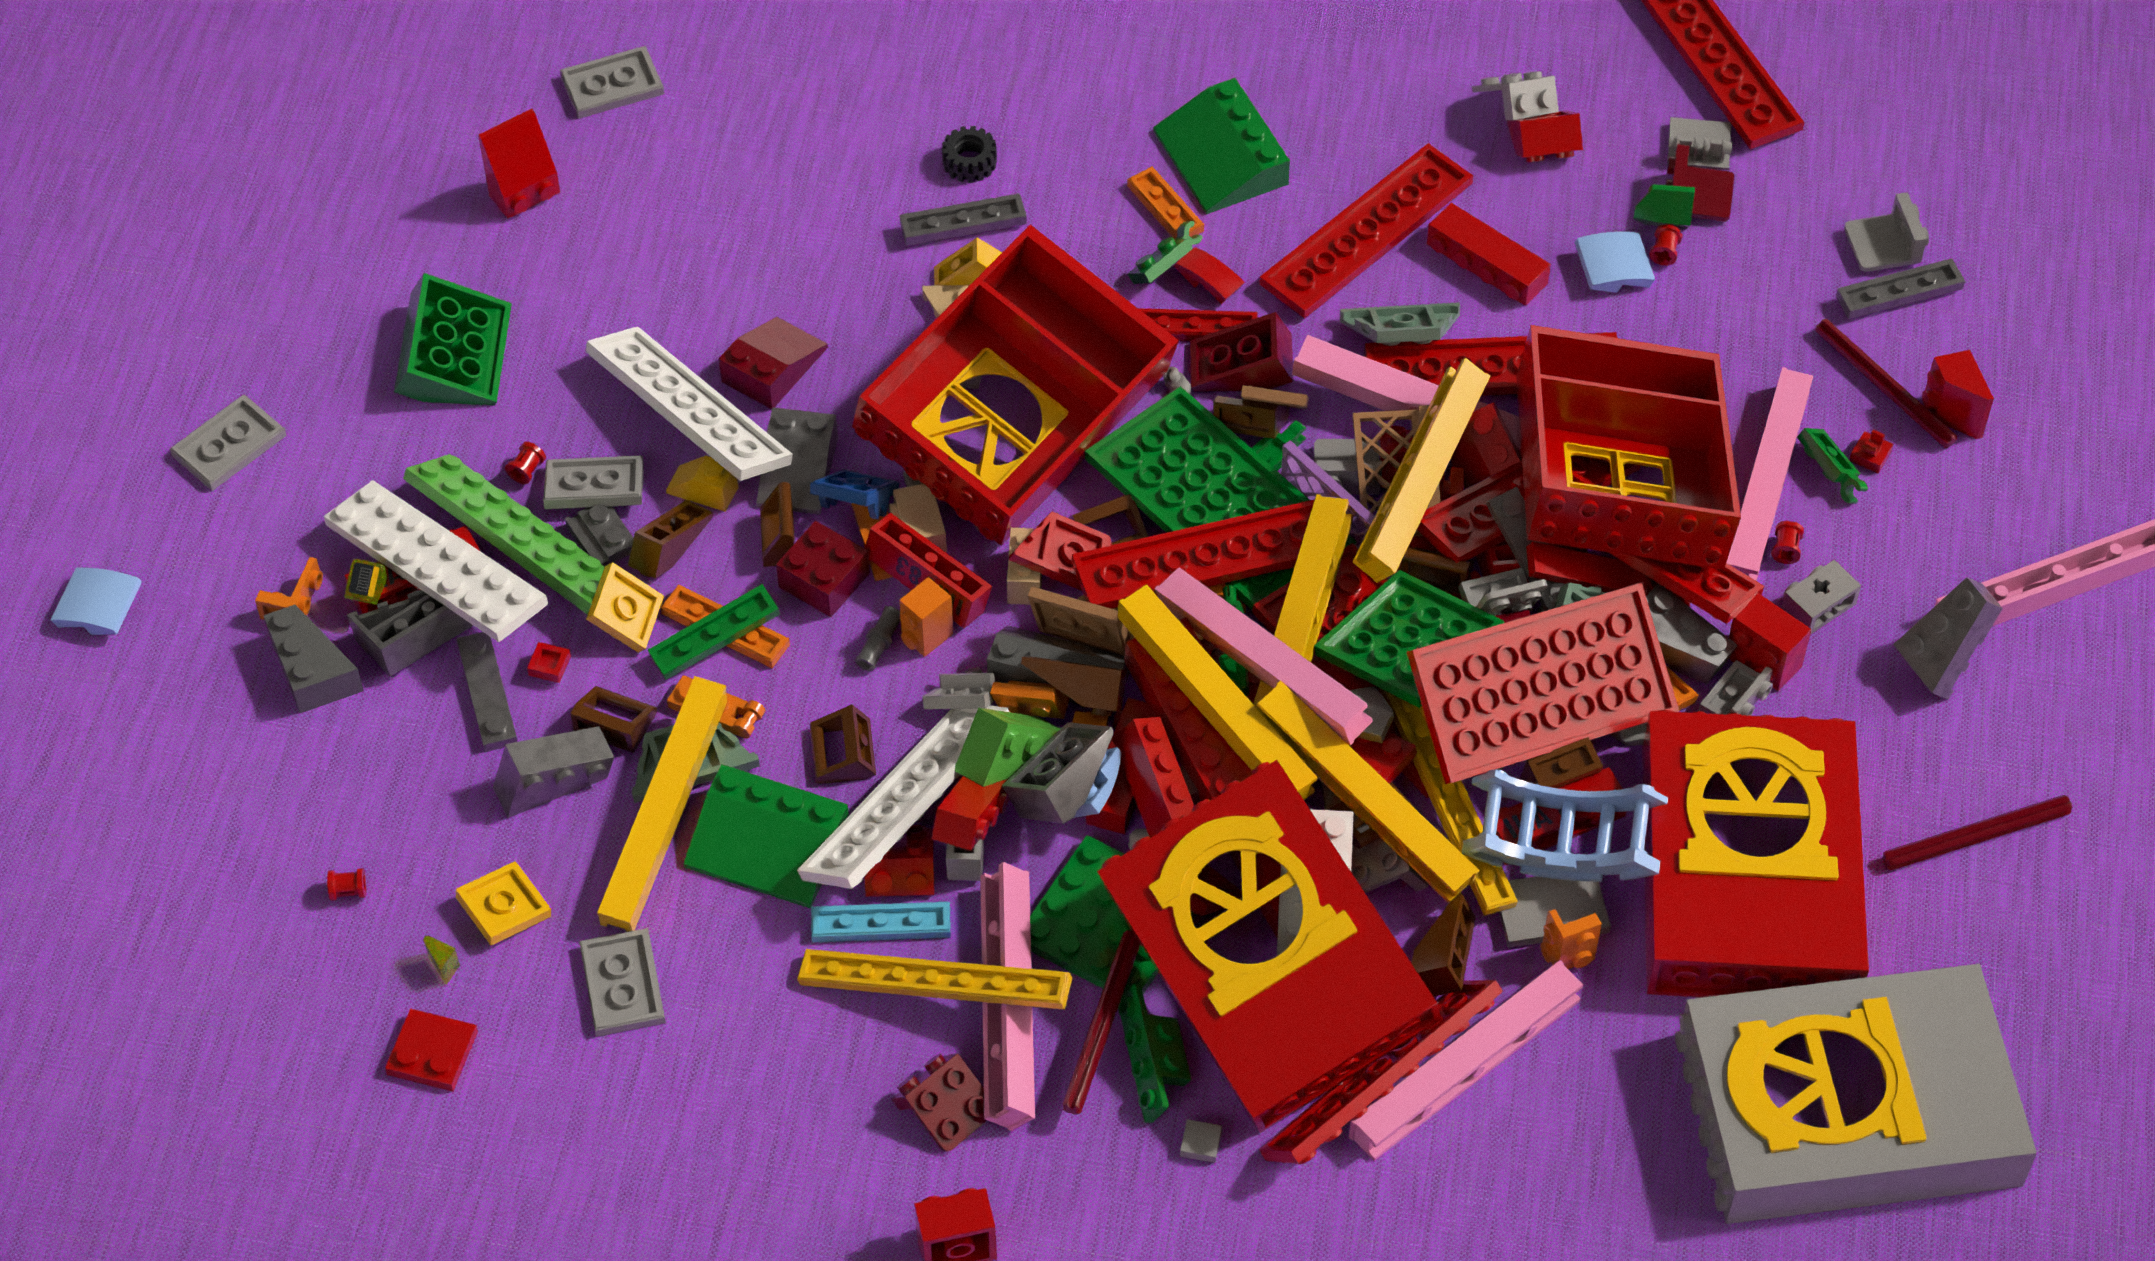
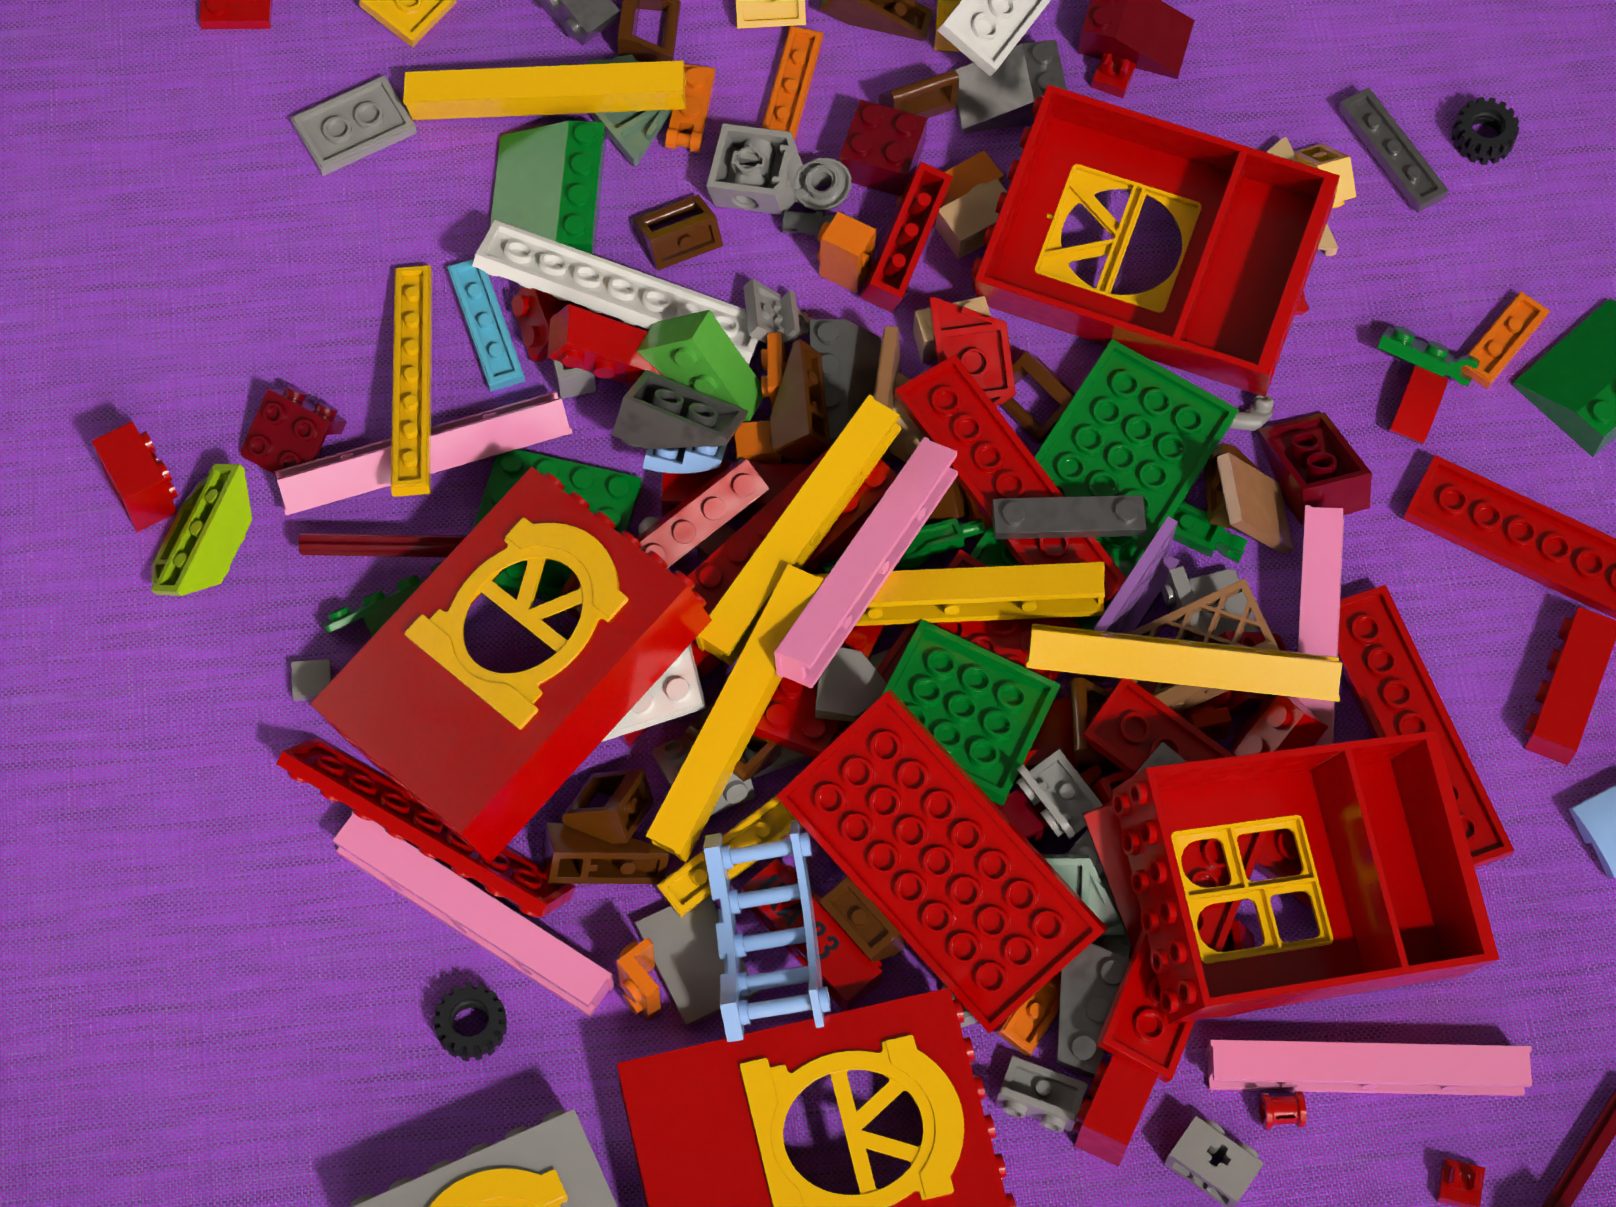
camera: 70 degrees right, 10 degrees up
(714, 632) = (771, 76): green plate -> none
(809, 388) = (1113, 75): none -> red tile
(819, 654) = (765, 173): none -> light grey brick
(855, 489) = (984, 127): blue piece -> none
(1030, 1193) = (204, 534): none -> lime wedge
(1196, 323) = (1346, 405): red tile -> none
(1254, 518) = (1068, 517): none -> flat silver plate
(1402, 323) = (1431, 619): sand green wing -> none
(1425, 929) = (622, 813): none -> reddish brown tile
(1562, 1103) = (463, 999): none -> black tyre
(1833, 462) = (1422, 1138): green plate -> none

